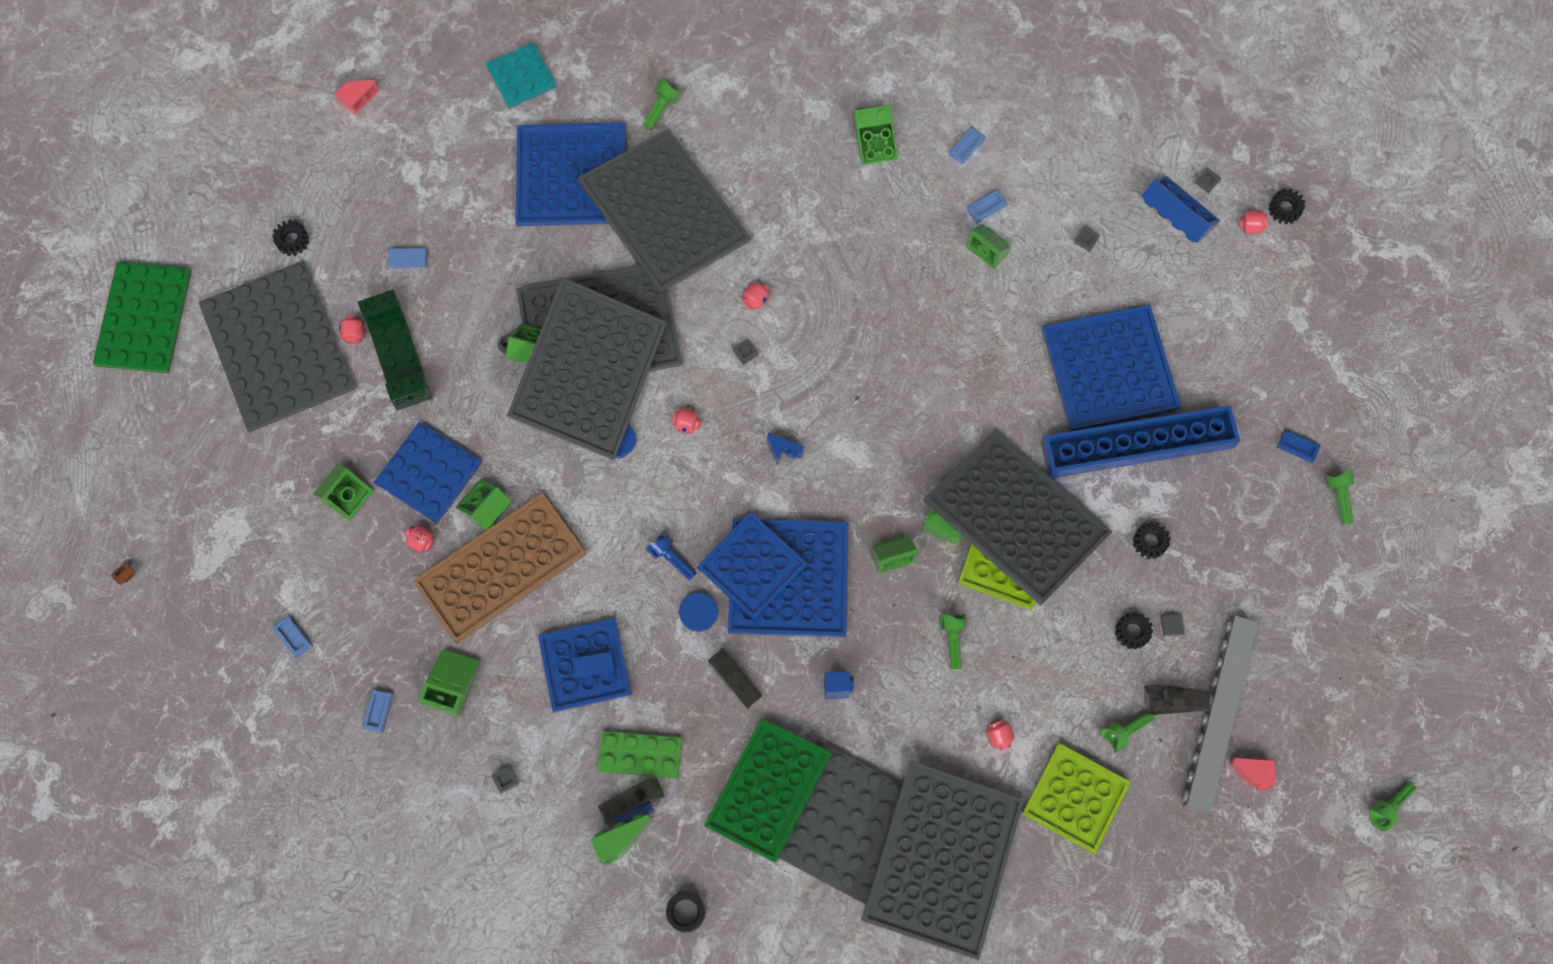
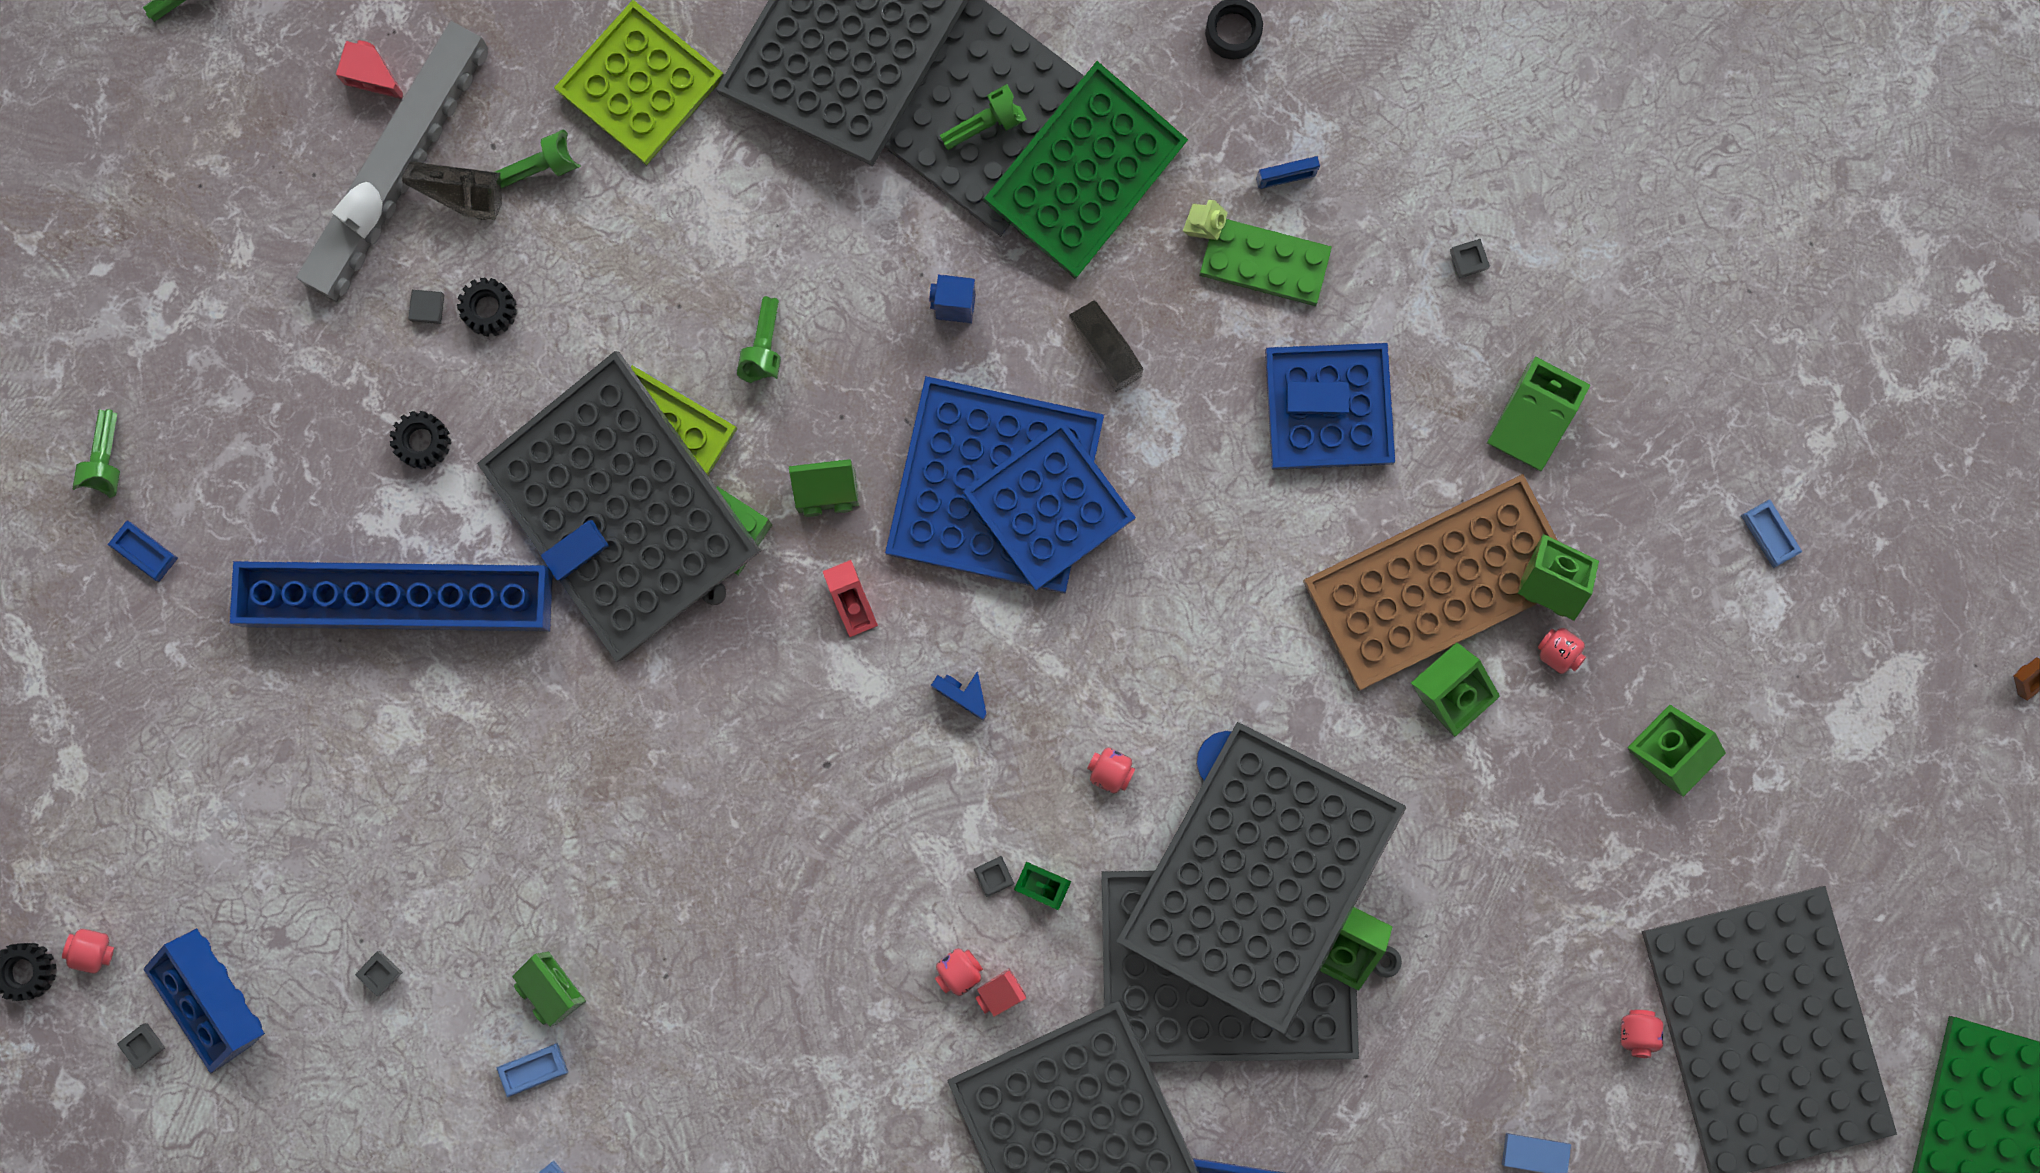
camera: 170 degrees left, 10 degrees up
(377, 711) = (1649, 396): medium blue tile -> none
(395, 350) = (1571, 982): dark green plate -> none
(426, 578) = (1559, 578): none -> bright green slope
(428, 472) = (1537, 762): blue plate -> none
(617, 842) = (1321, 133): bright green slope -> none
(634, 797) = (1286, 194): clear smoke slope -> none
(662, 547) = (1182, 562): blue piece -> none
(683, 771) = (1205, 220): none -> yellowish green bracket
(698, 612) = (1143, 457): blue tile -> none
(714, 349) = (1042, 885): none -> green slope
(728, 287) = (1000, 993): none -> coral slope
(832, 815) = (1001, 111): none -> bright green piece
(864, 492) = (850, 598): none -> coral slope
(1000, 734) = (727, 190): coral head -> none
(1037, 486) = (574, 550): none -> blue tile
(1110, 368) = (403, 736): blue plate -> none
(1230, 670) = (360, 209): none -> white brick

